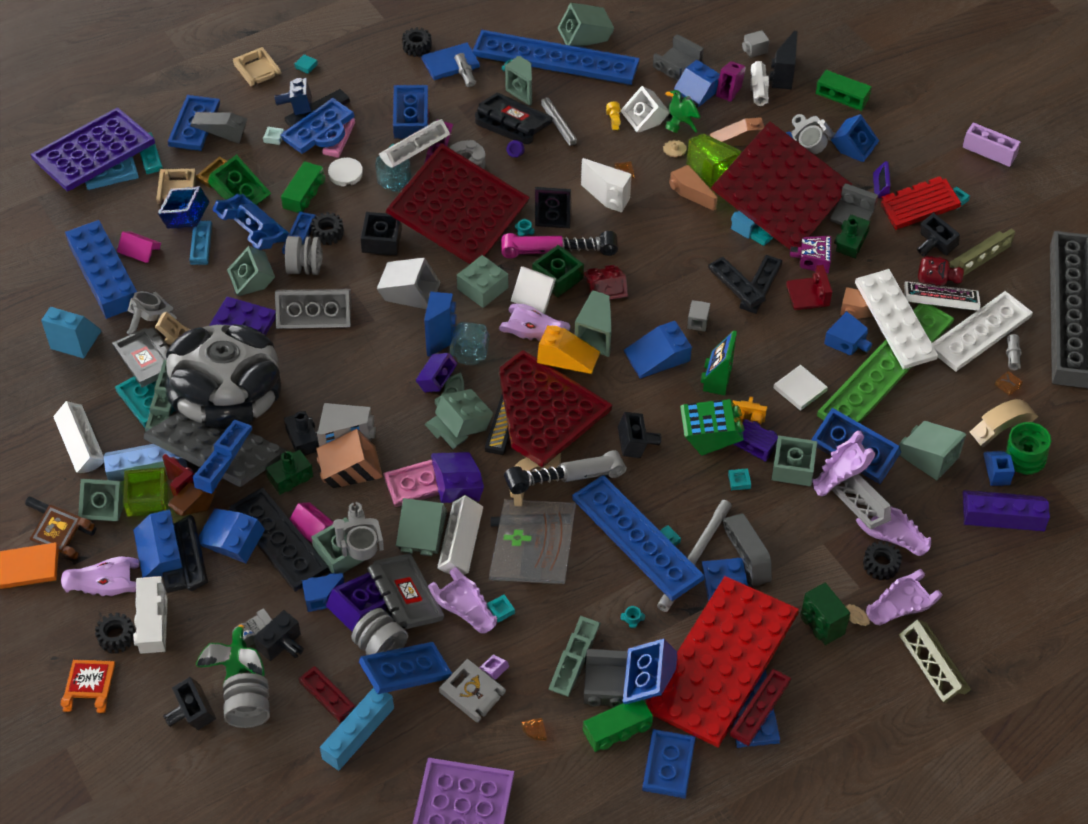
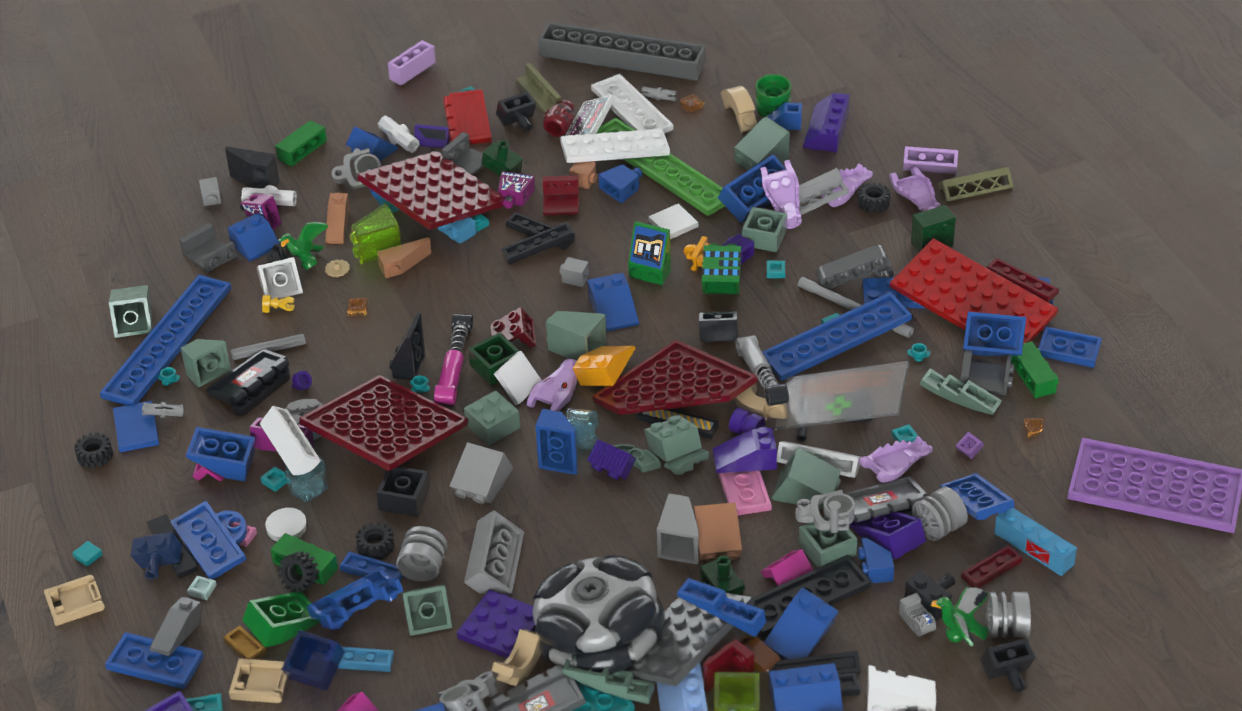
camera: 80 degrees left, 10 degrees down
(280, 182) = (307, 567): none -> black tyre
(301, 432) = (672, 569): black brick -> none
(475, 692) = (996, 457): light grey container -> none
(494, 472) = (743, 421): none -> dark purple wheel
(606, 184) = (386, 311): white slope -> none
(878, 155) = (398, 134): none -> white piece
(957, 608) = (931, 160): none -> lavender brick

